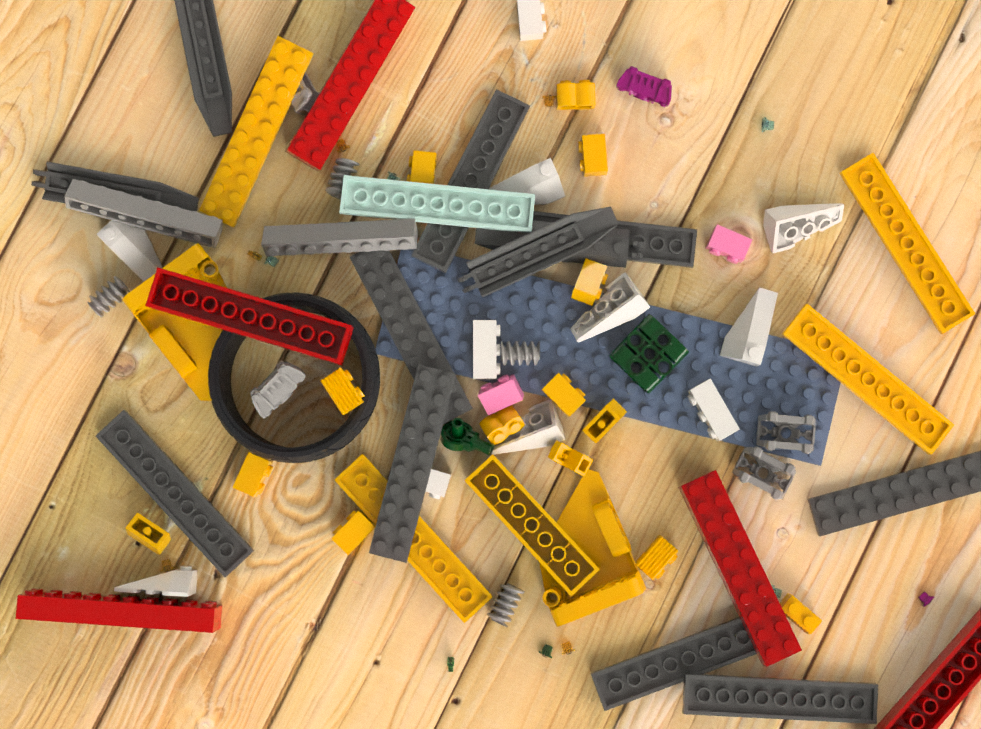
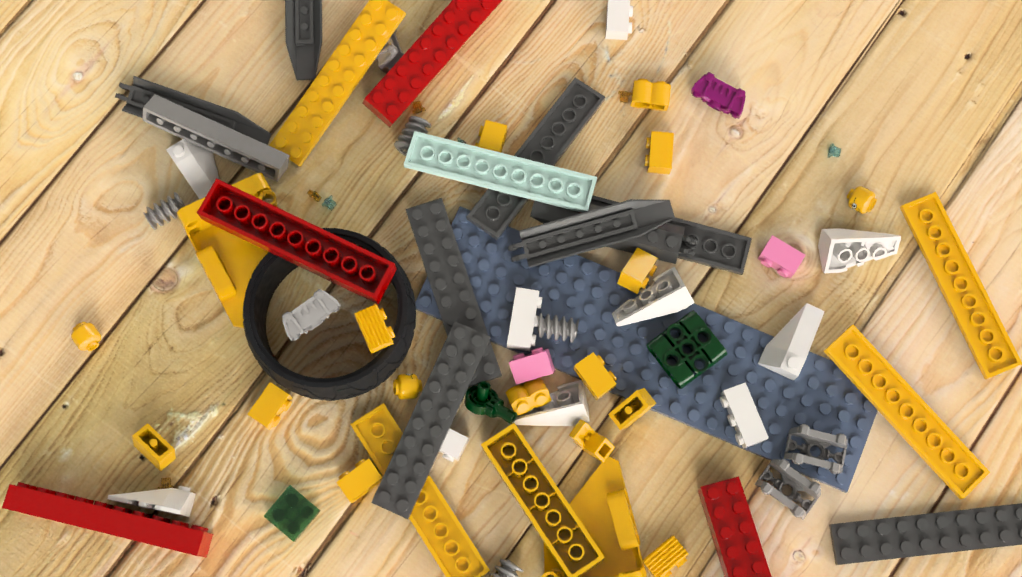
camera: 10 degrees right, 10 degrees down
(57, 435) = (86, 336): none -> yellow head
(175, 493) = (190, 413): dark grey plate -> none
(294, 574) = (292, 513): none -> clear green plate
(340, 237) = (400, 189): light grey brick -> none
(382, 433) = (407, 386): none -> yellow head
(538, 180) = (605, 166): white wedge -> none
(800, 172) = (861, 199): none -> yellow head

